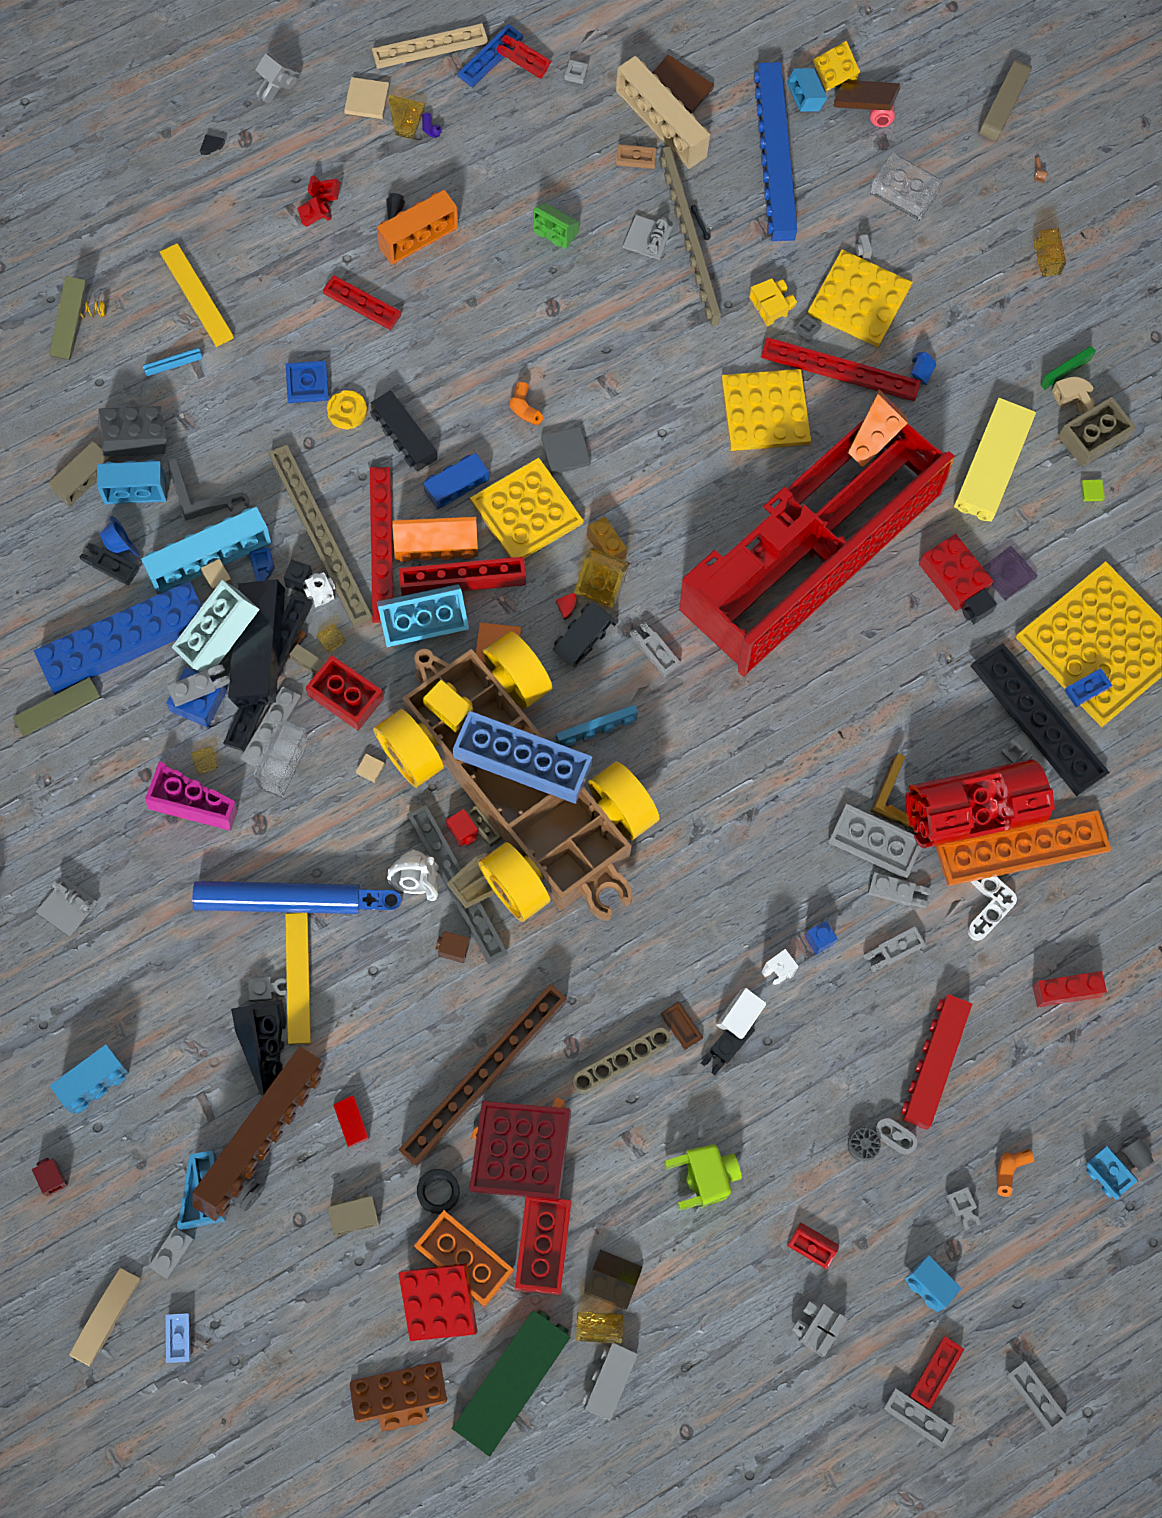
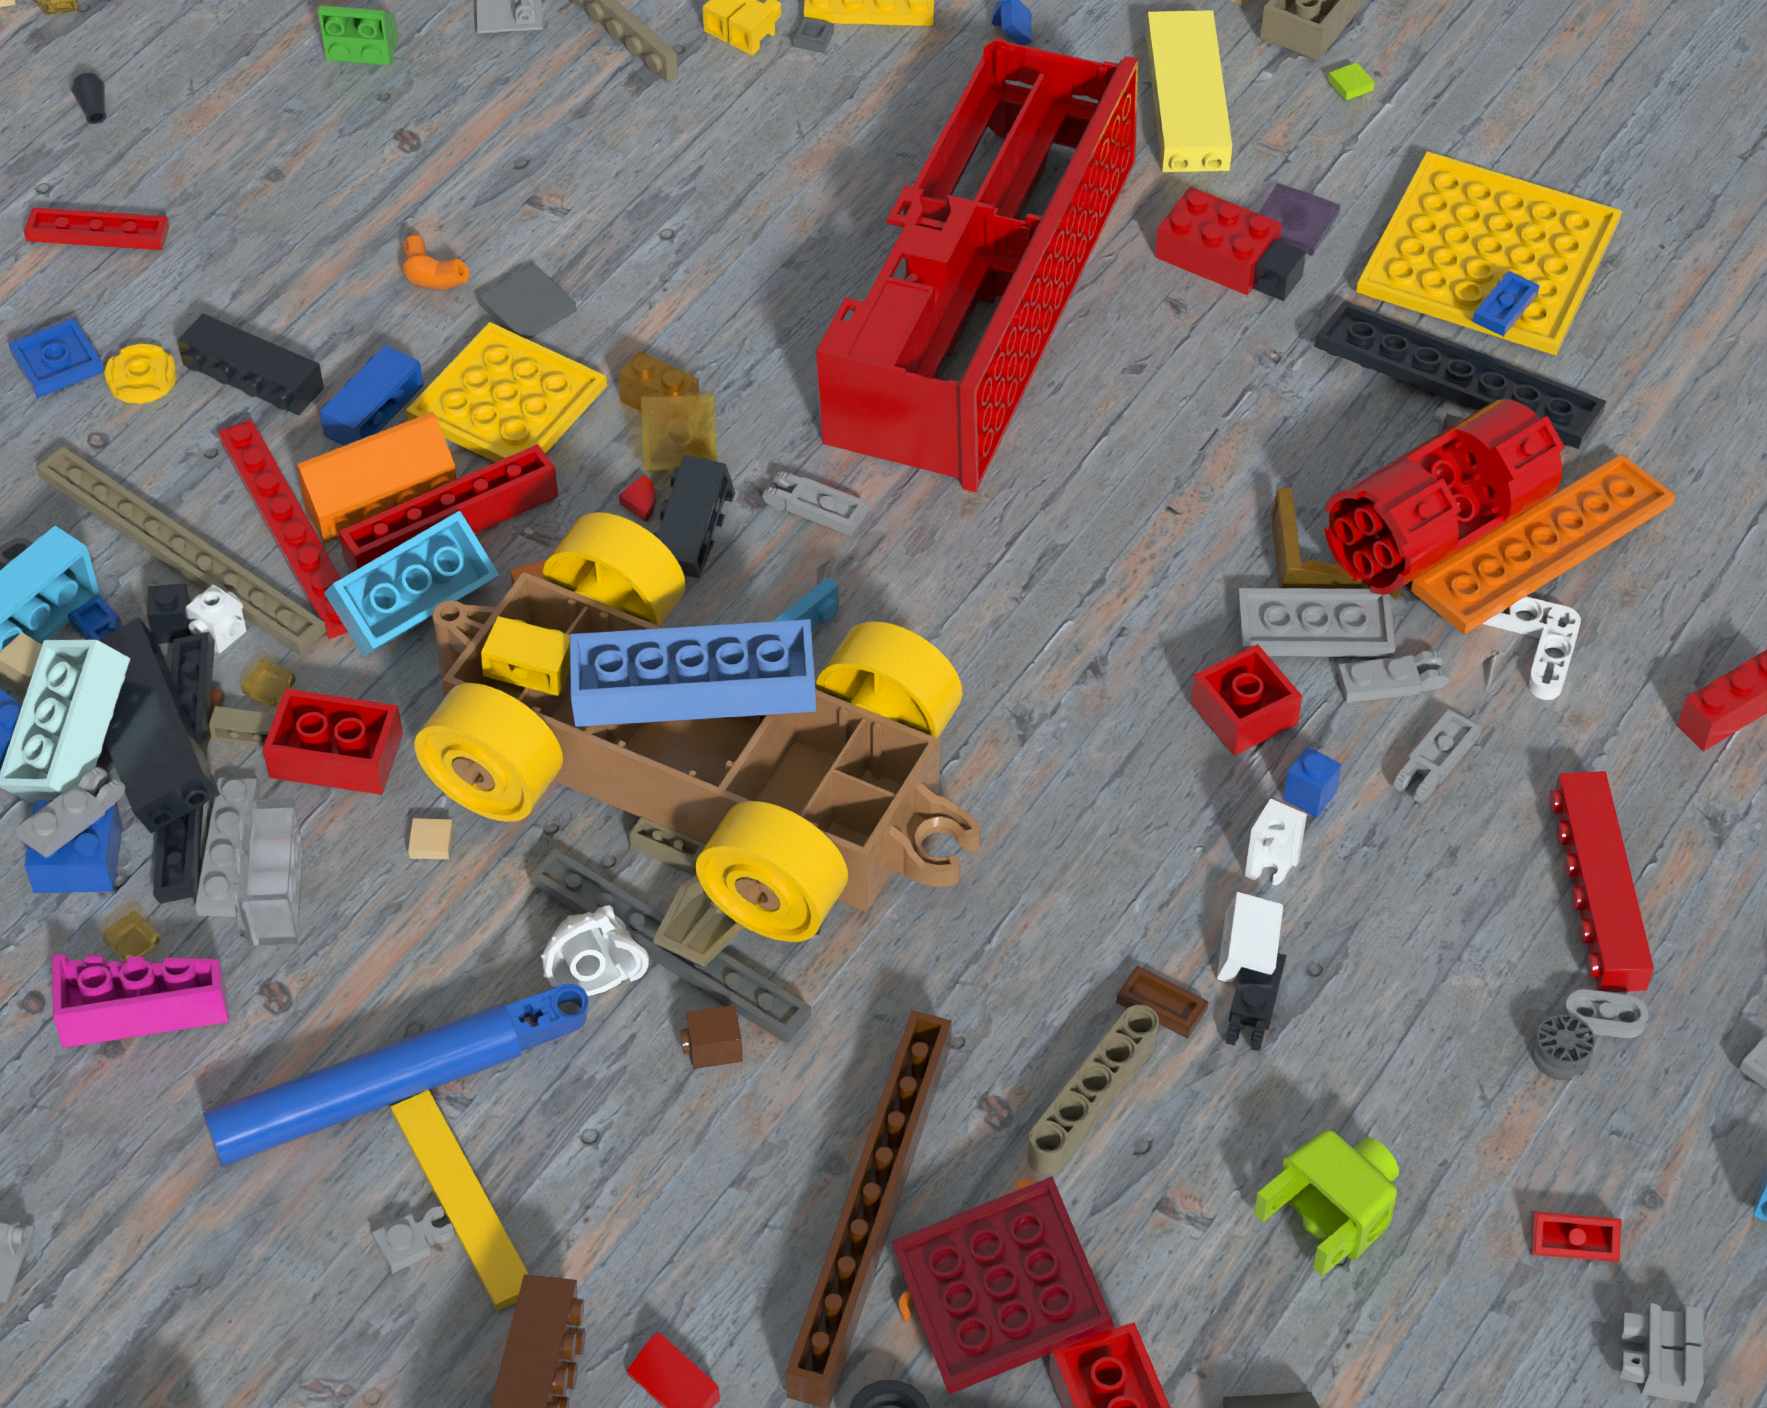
camera: 20 degrees left, 20 degrees down
(260, 1037) = (433, 1304): black wedge -> none
(417, 227) = (141, 101): orange brick -> none
(462, 828) = (634, 859): red brick -> none
(766, 410) = (810, 151): yellow plate -> none
(812, 874) = (1246, 699): none -> red brick
(840, 369) = (875, 65): red plate -> none
(877, 429) = (1001, 71): wedge -> none

